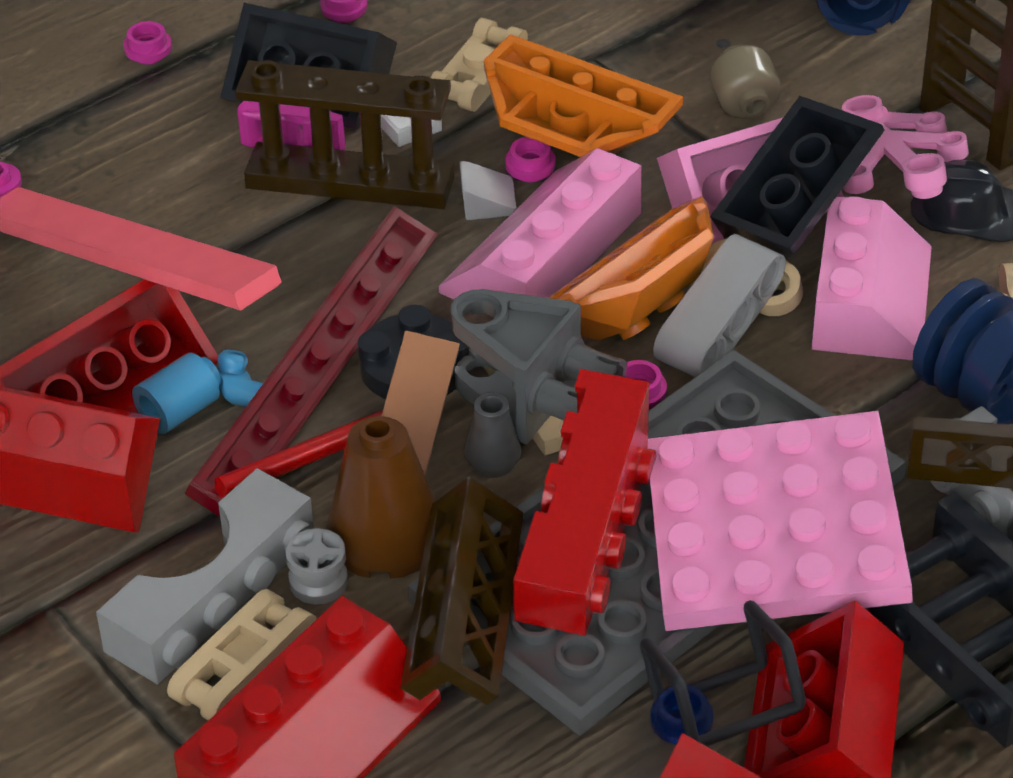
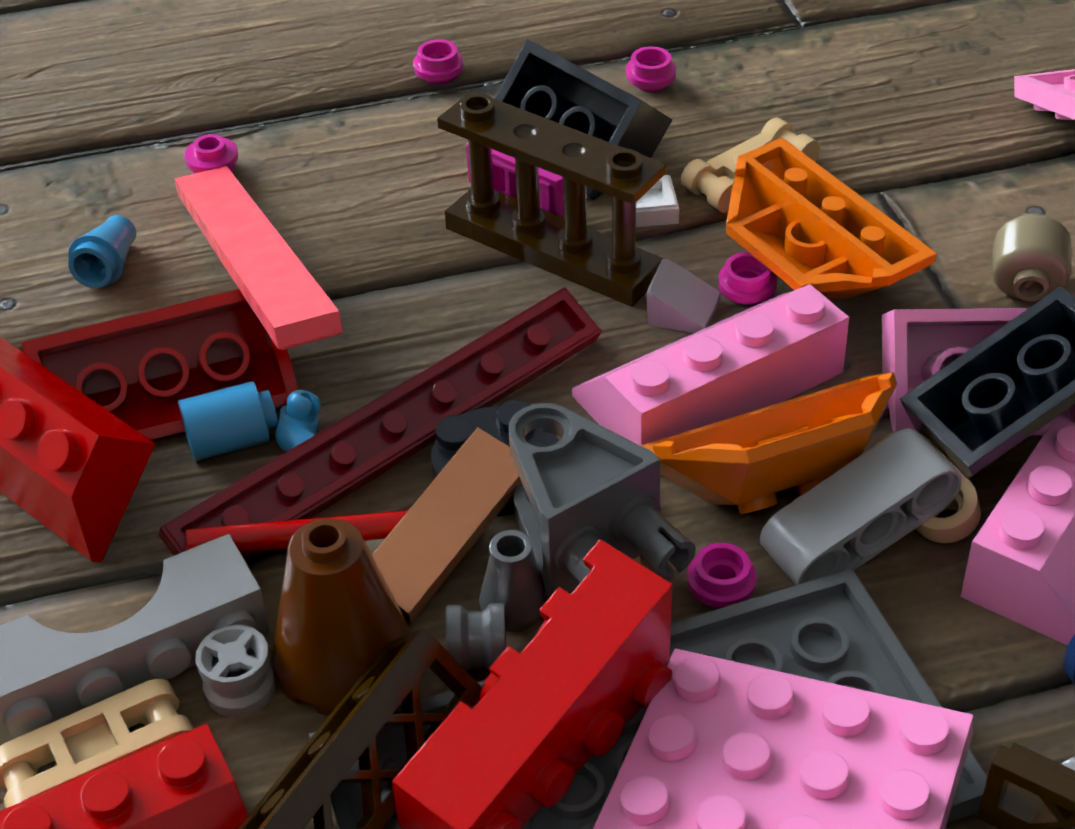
camera: 25 degrees right, 0 degrees up
(495, 474) = (476, 636): none -> dark grey wheel

